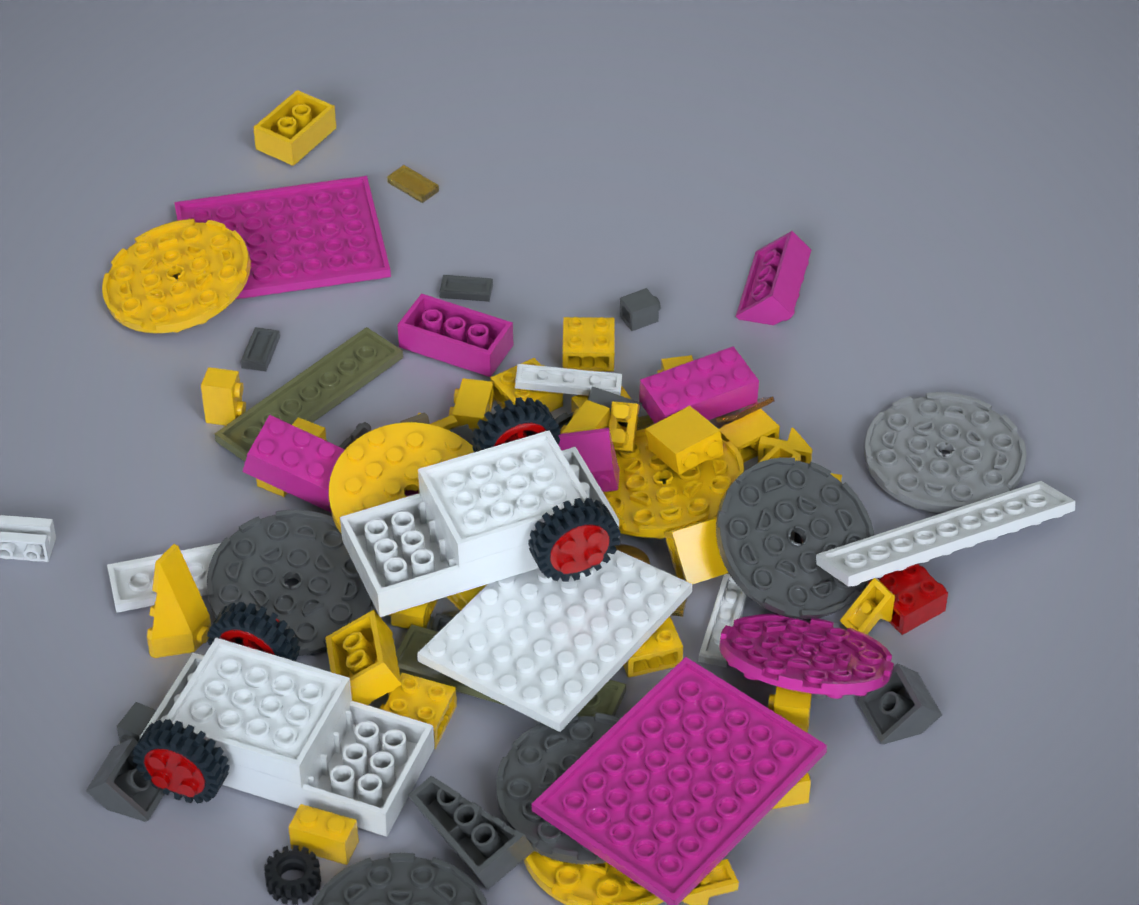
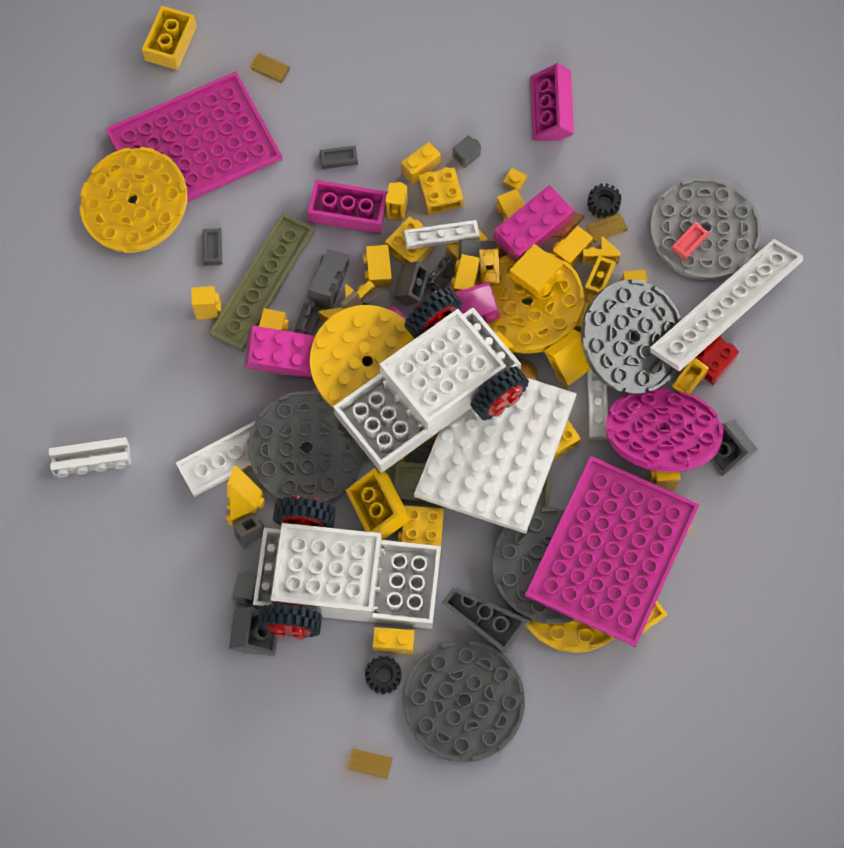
camera: 15 degrees left, 25 degrees up
(170, 659) = (248, 530): none -> dark grey brick
(399, 400) = (328, 279): none -> dark grey wedge
(522, 337) = (396, 201): none -> yellow brick
(571, 303) = (421, 161): none -> yellow brick
(696, 349) = (515, 179): none -> yellow plate
(808, 426) = (607, 227): none -> clear yellow tile
(811, 406) = (608, 192): none -> black tyre
(917, 457) = (690, 241): none -> coral tile

